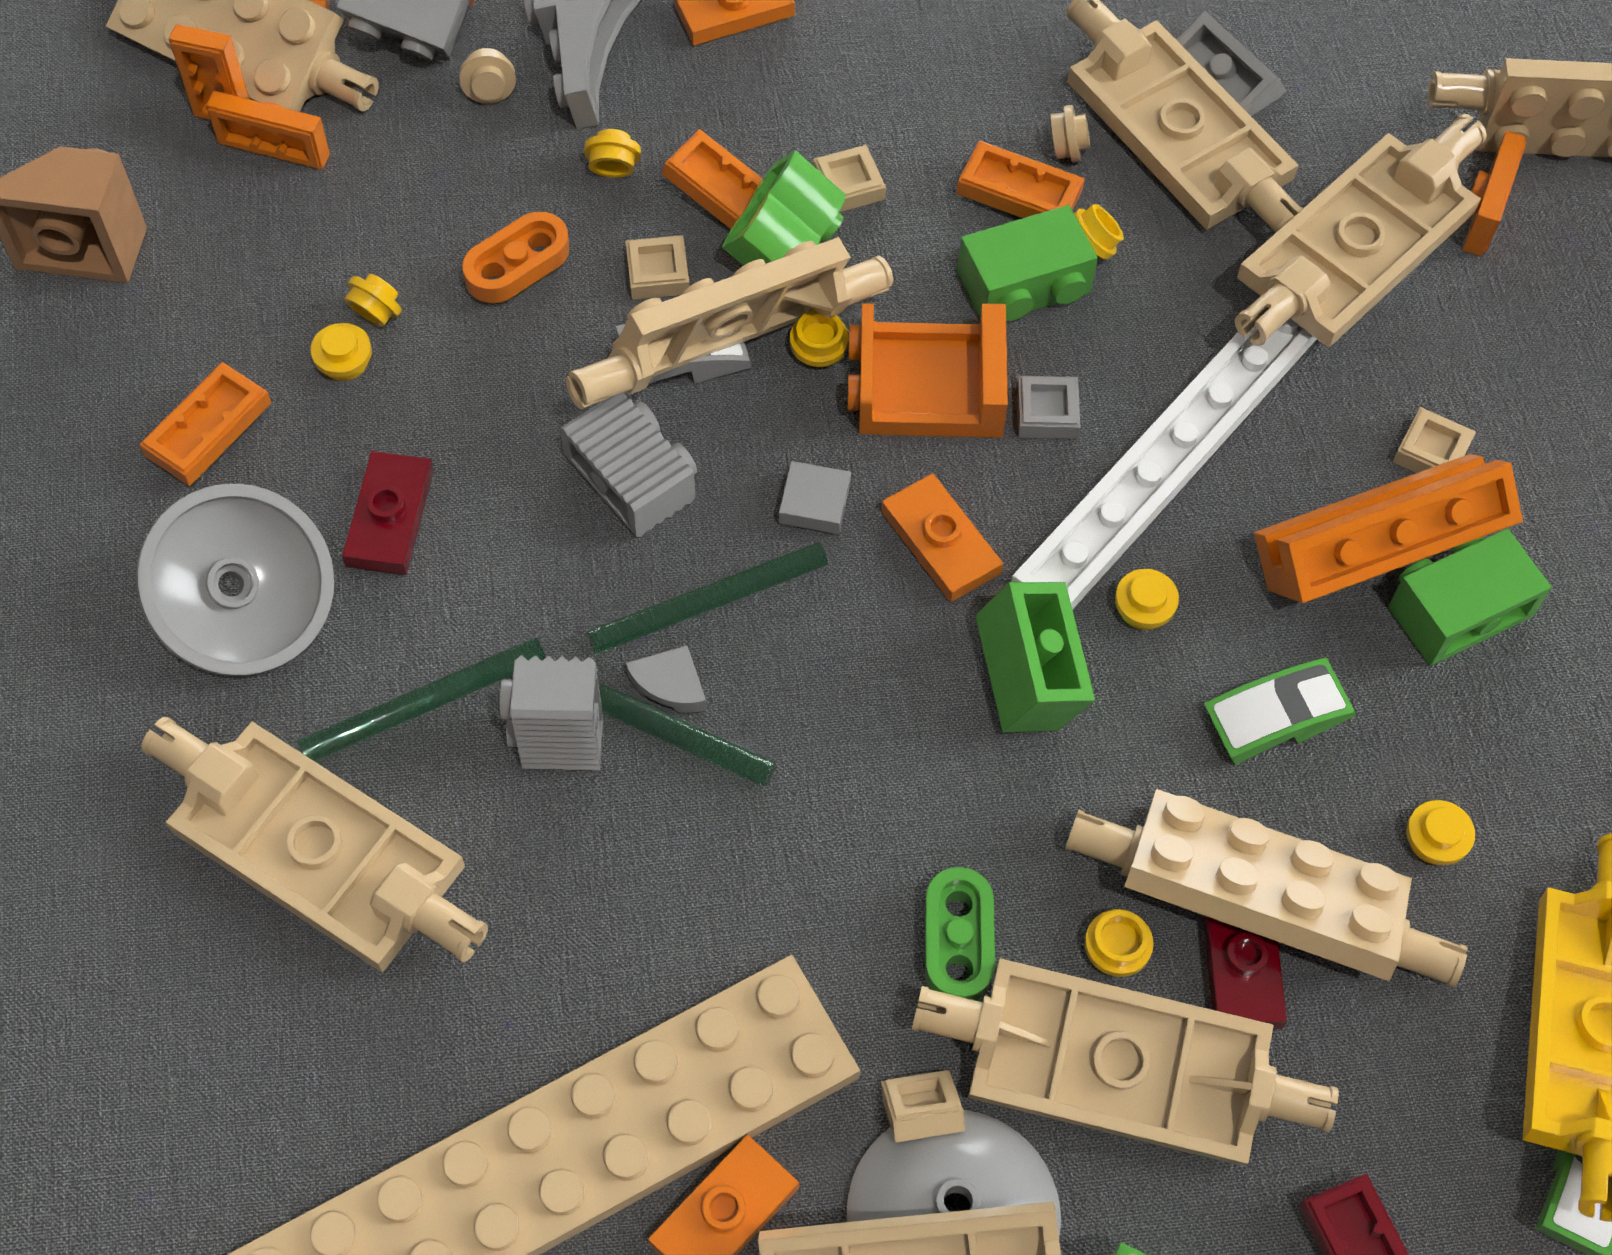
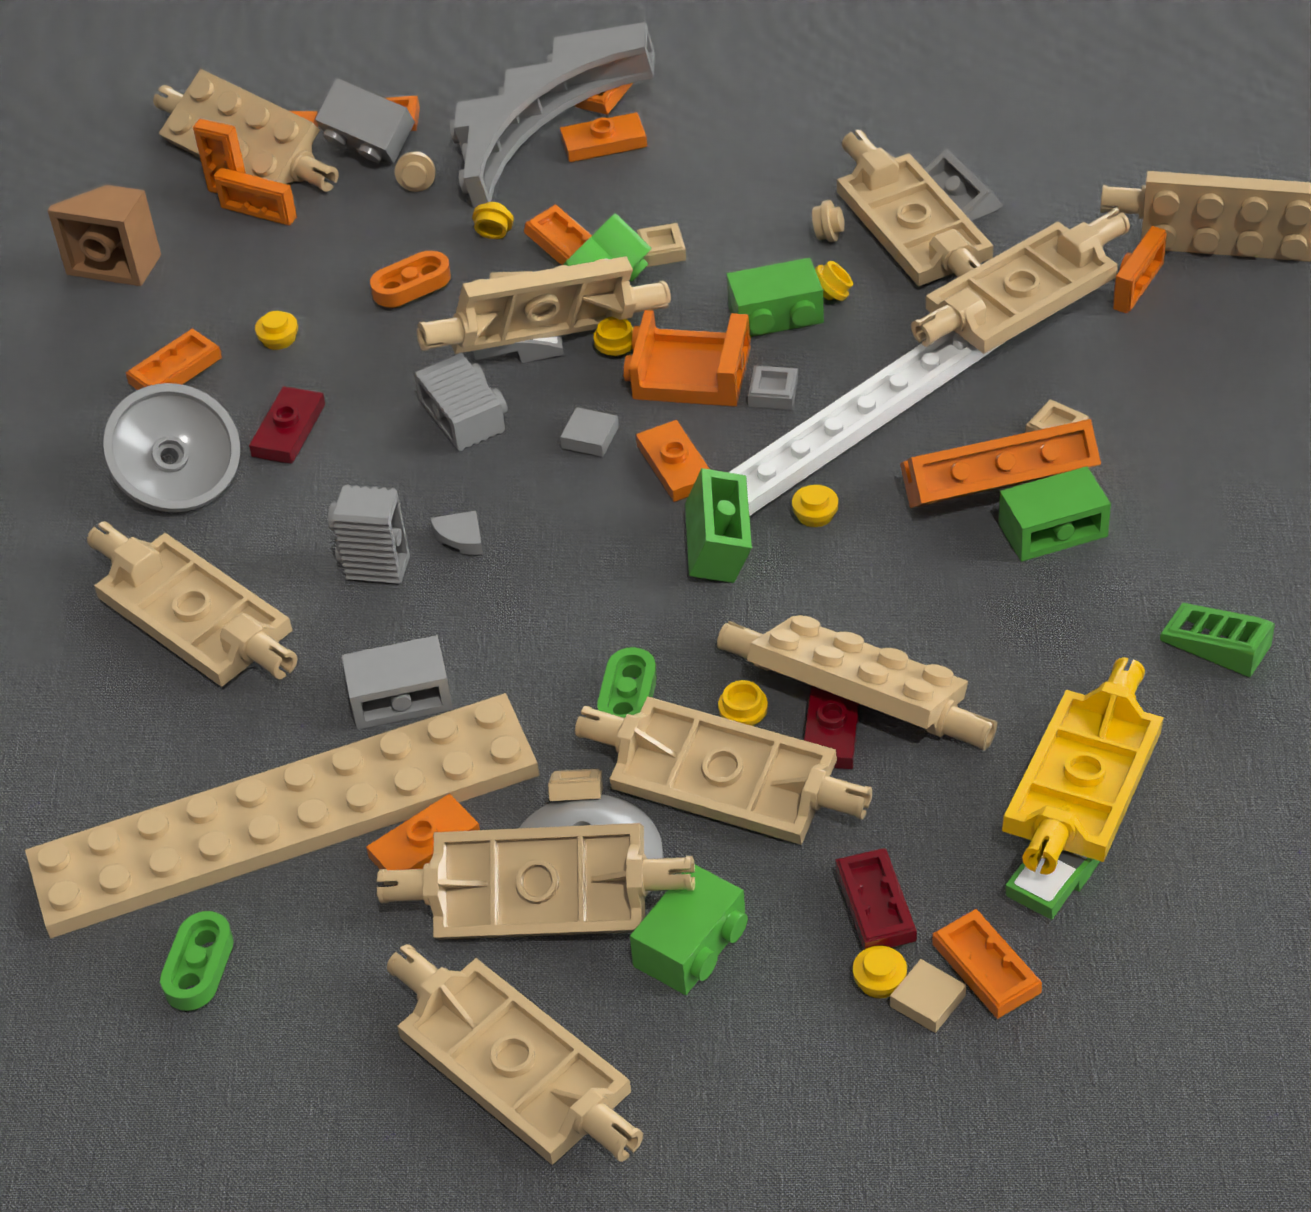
camera: 15 degrees right, 15 degrees down
(373, 299) = (304, 298): yellow plate -> none
(417, 701) = (264, 539): clear green bar -> none
(636, 950) = (397, 682): none -> light grey brick
(686, 736) = (464, 566): clear green bar -> none
(707, 598) = (499, 486): clear green bar -> none
(1016, 182) = (772, 245): orange plate -> none
(1280, 707) = (908, 568): slope -> none
(1440, 832) = (997, 657): yellow plate -> none

